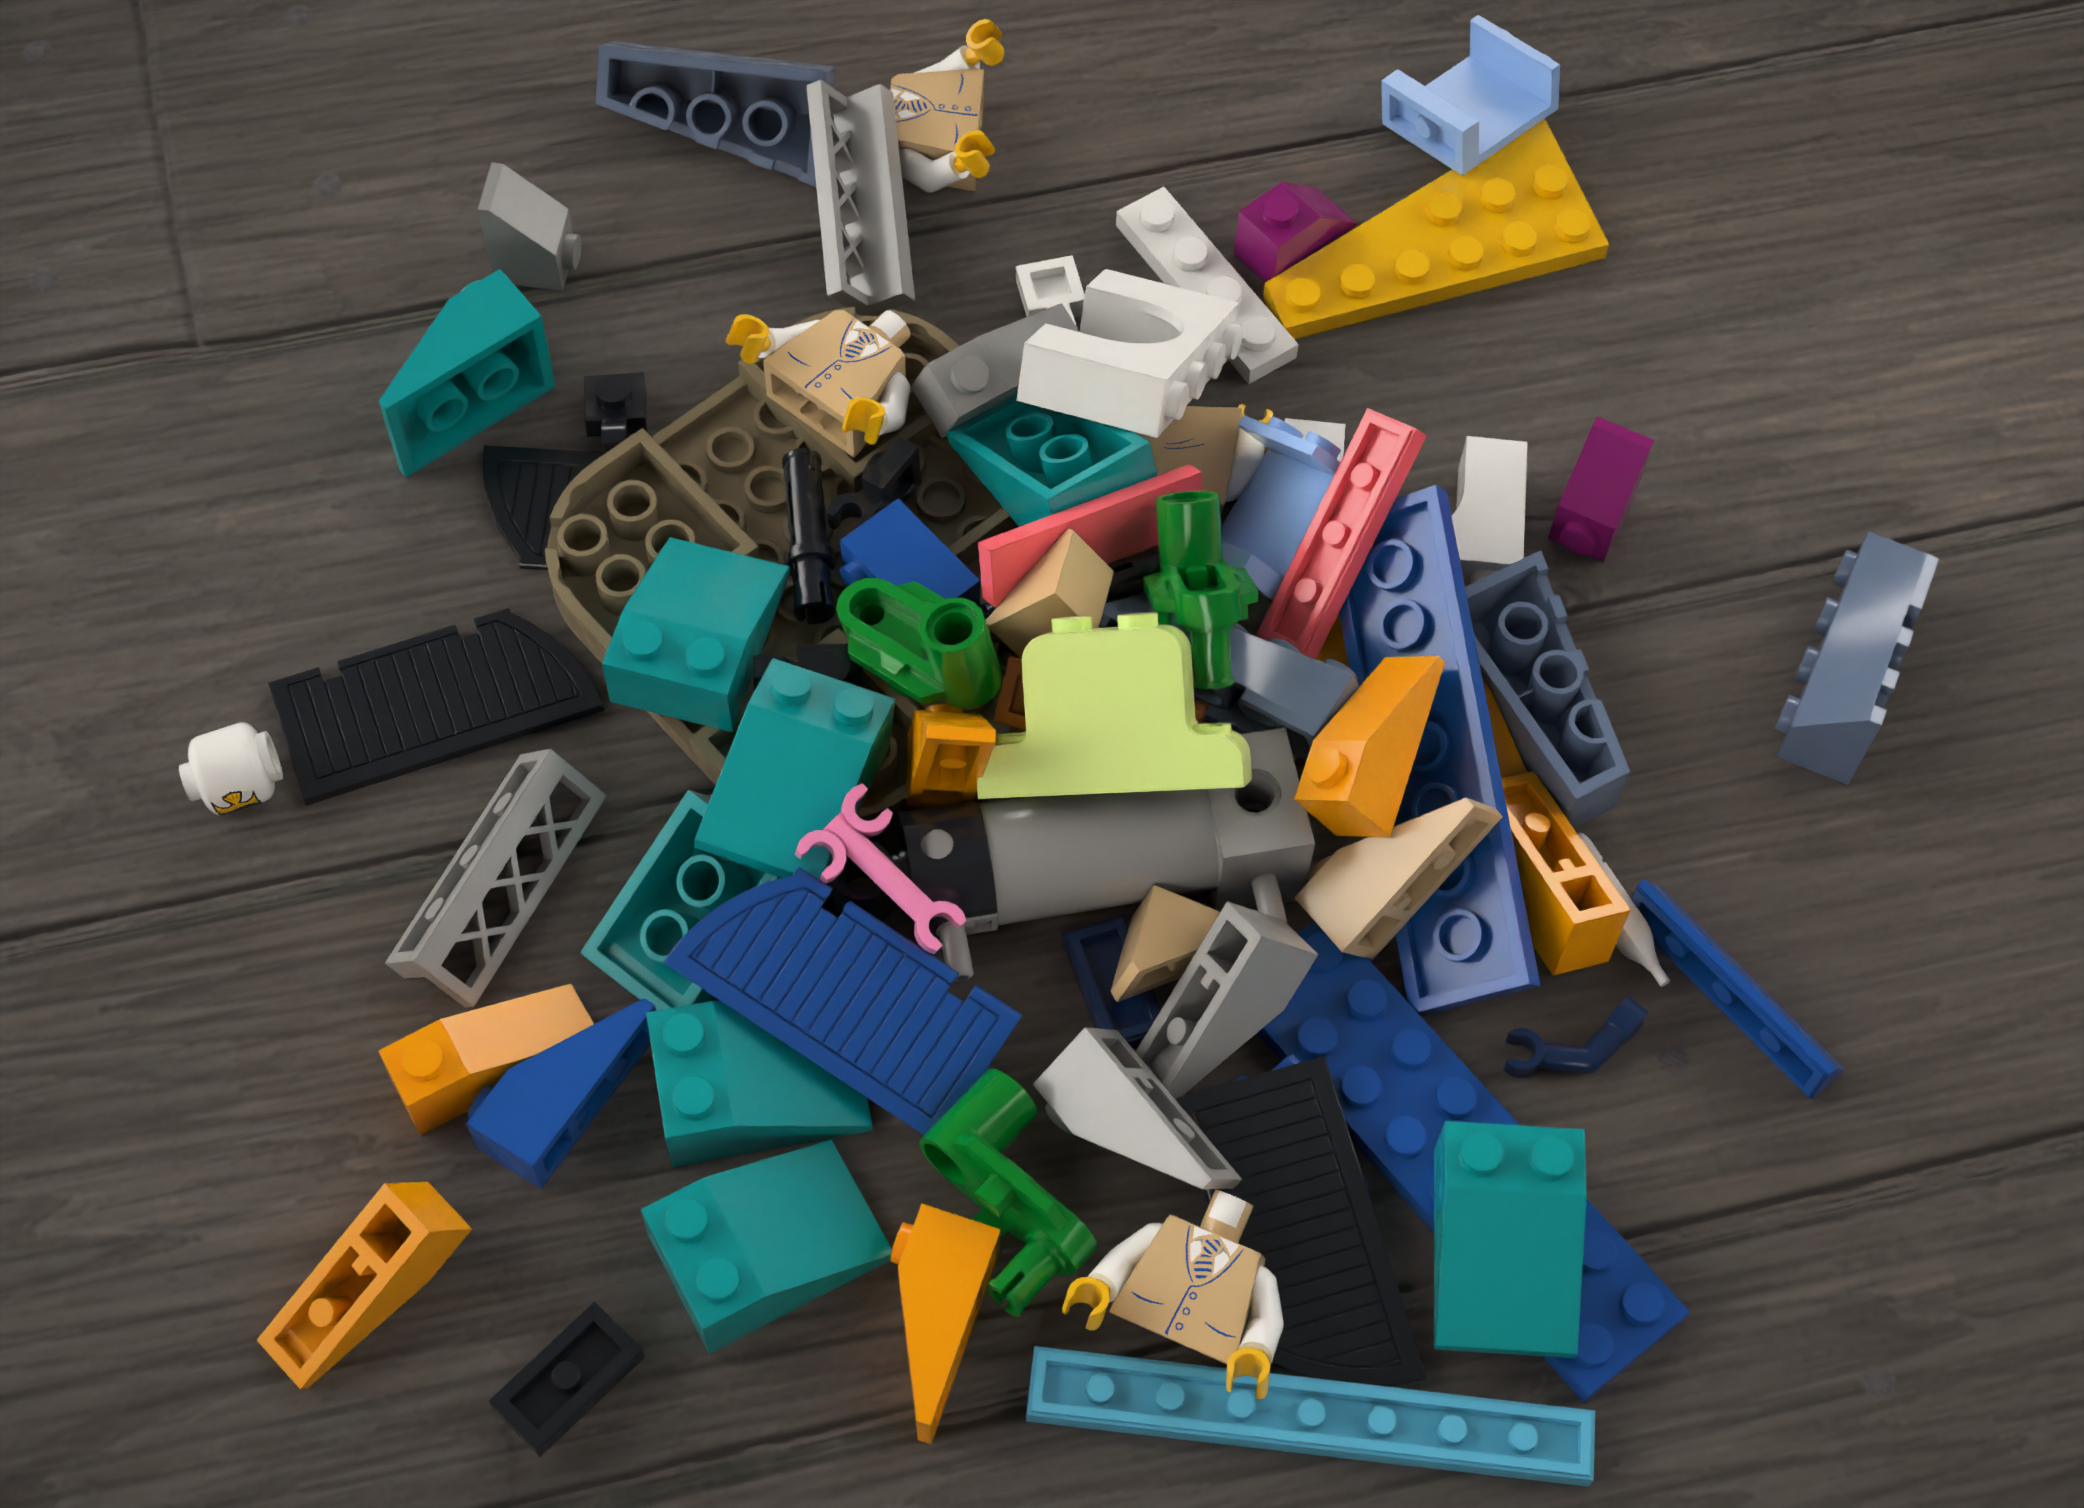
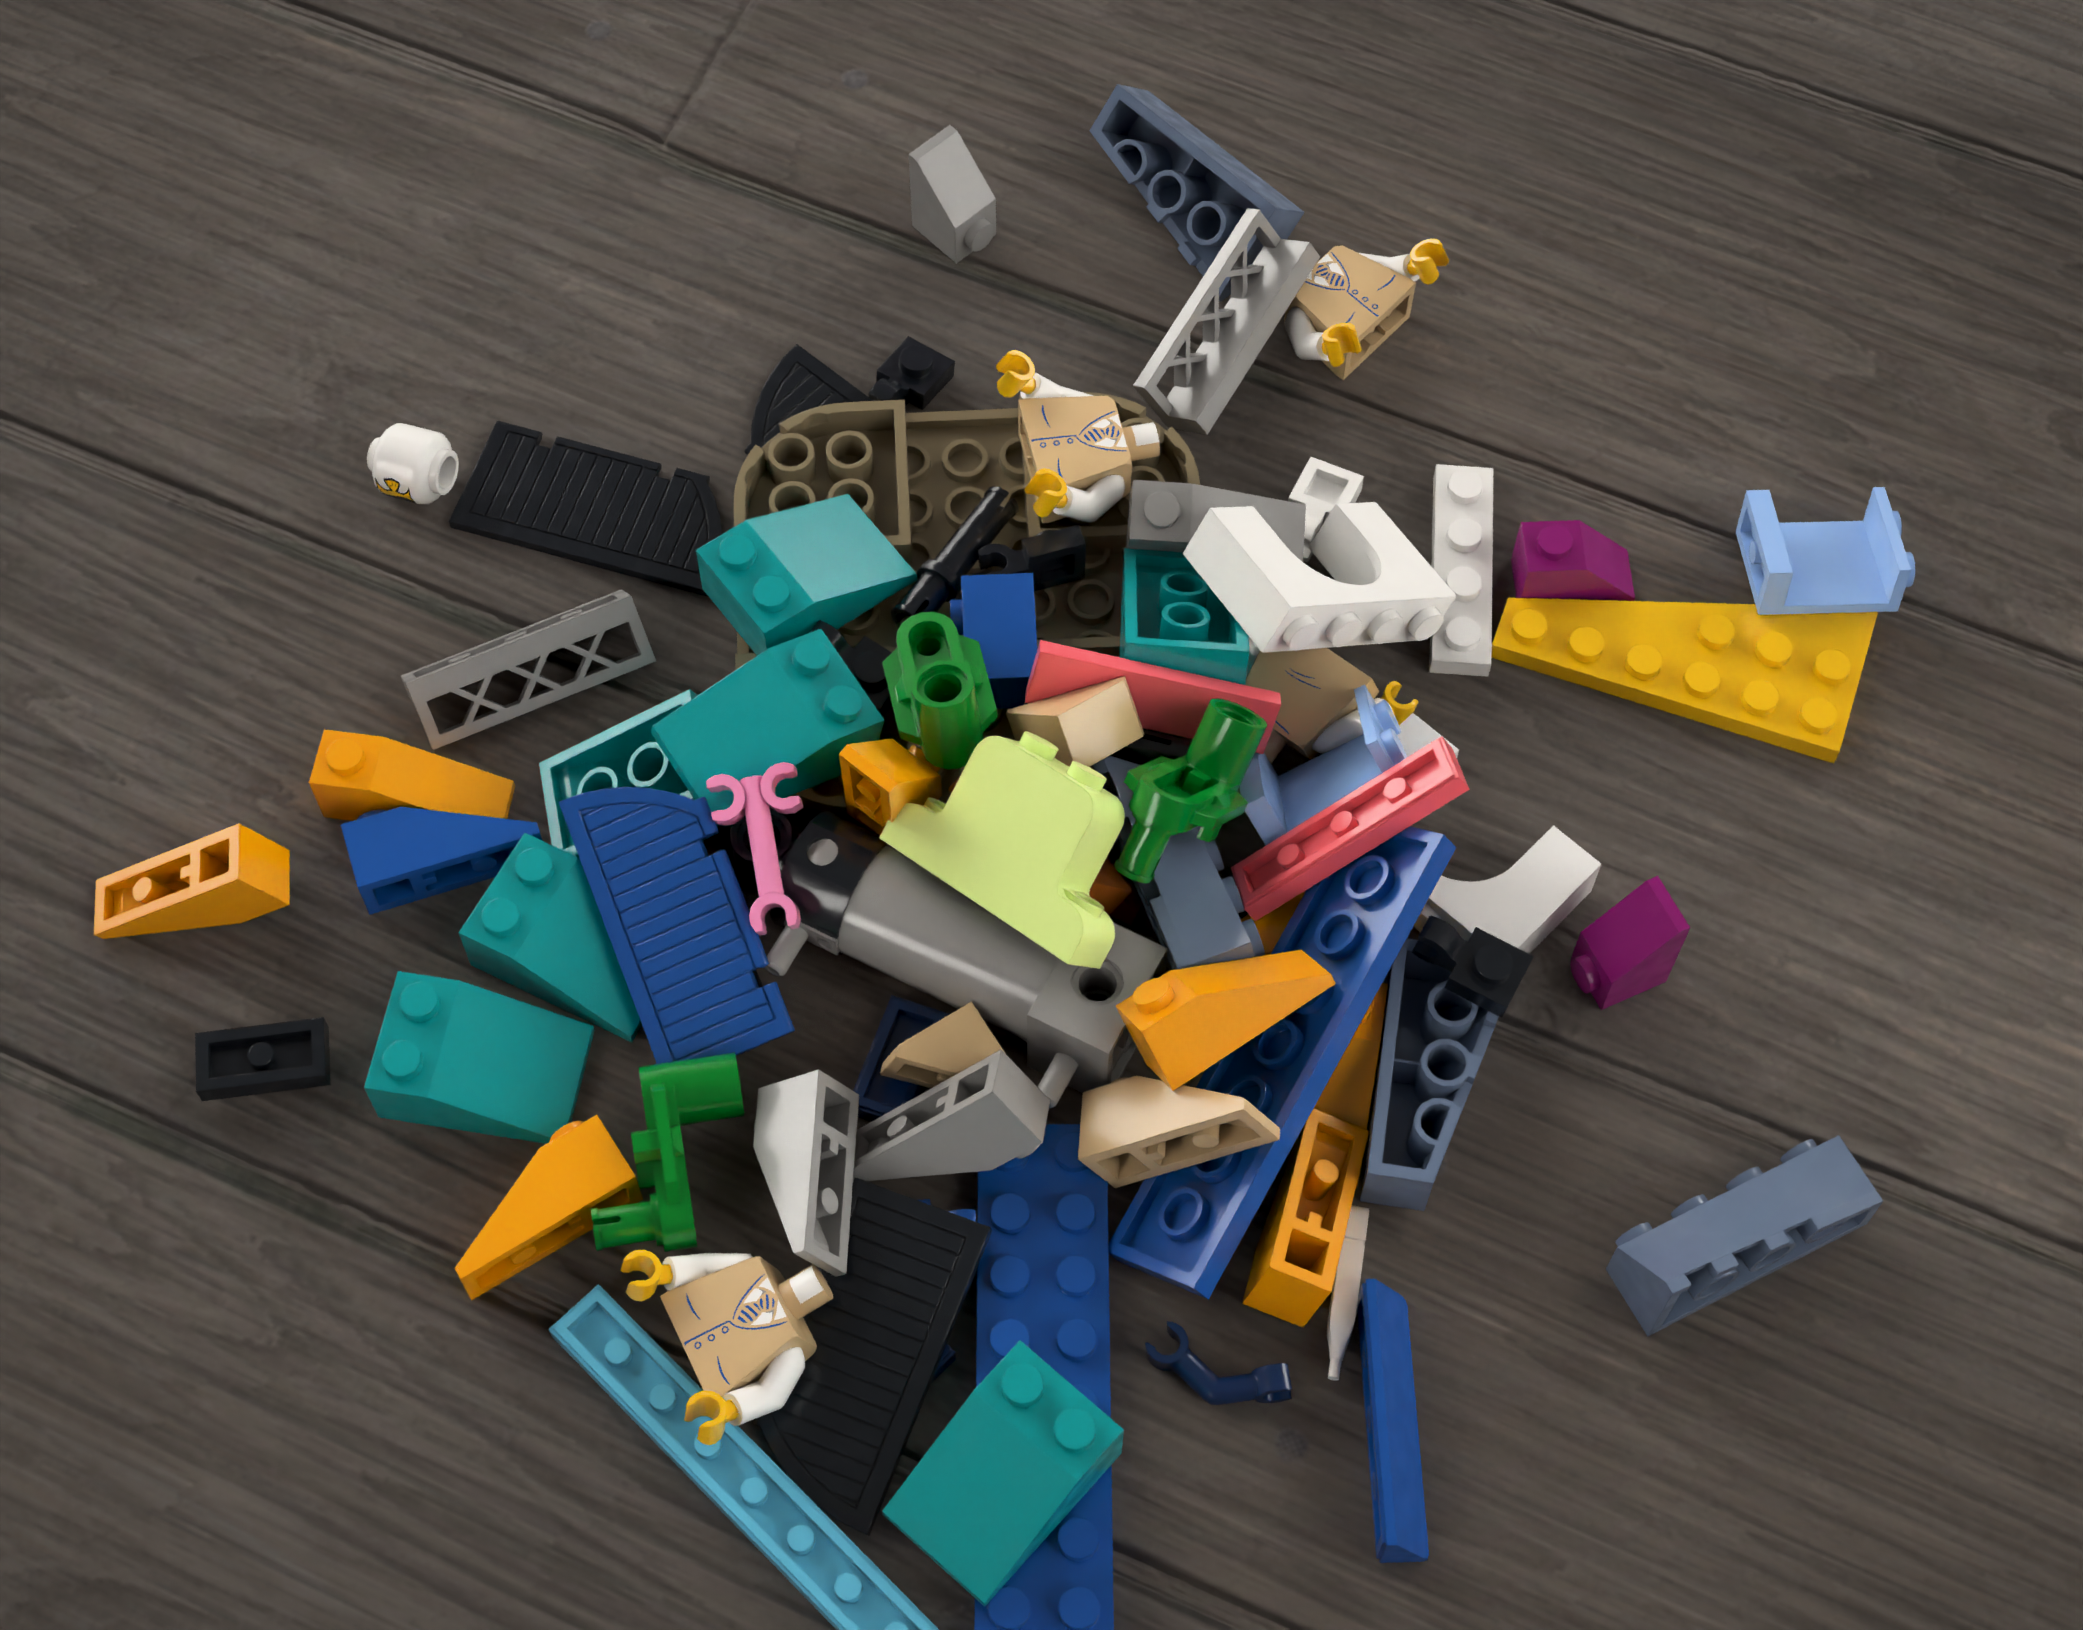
camera: 40 degrees right, 0 degrees up
(467, 372) = (809, 277): teal slope -> none
(1523, 576) = (1481, 969): none -> black plate

